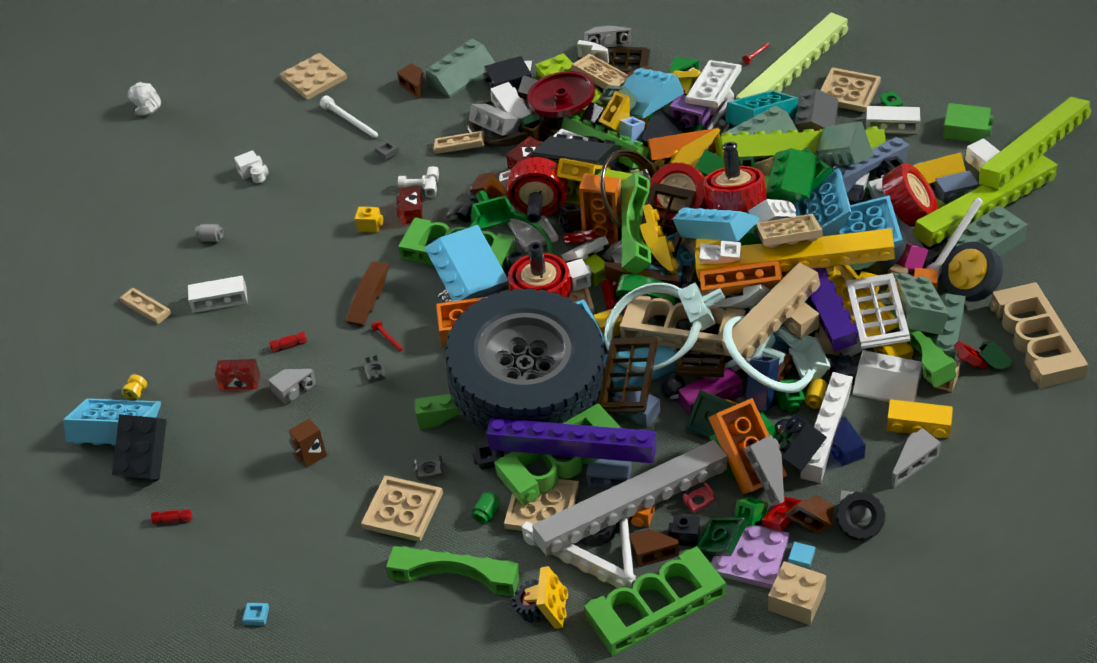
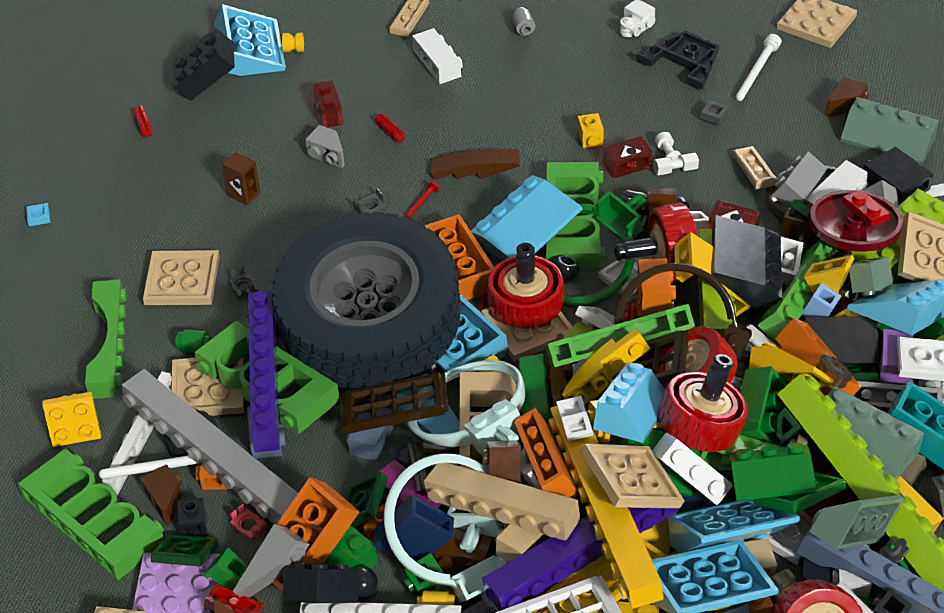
camera: 70 degrees right, 0 degrees up
(310, 146) = (687, 50): none -> black wing
(556, 83) = (865, 208): none -> red plate
(579, 274) = (552, 322): white brick -> none
(710, 126) = (836, 367): none -> clear smoke piece
(738, 300) = (503, 459): none -> reddish brown slope

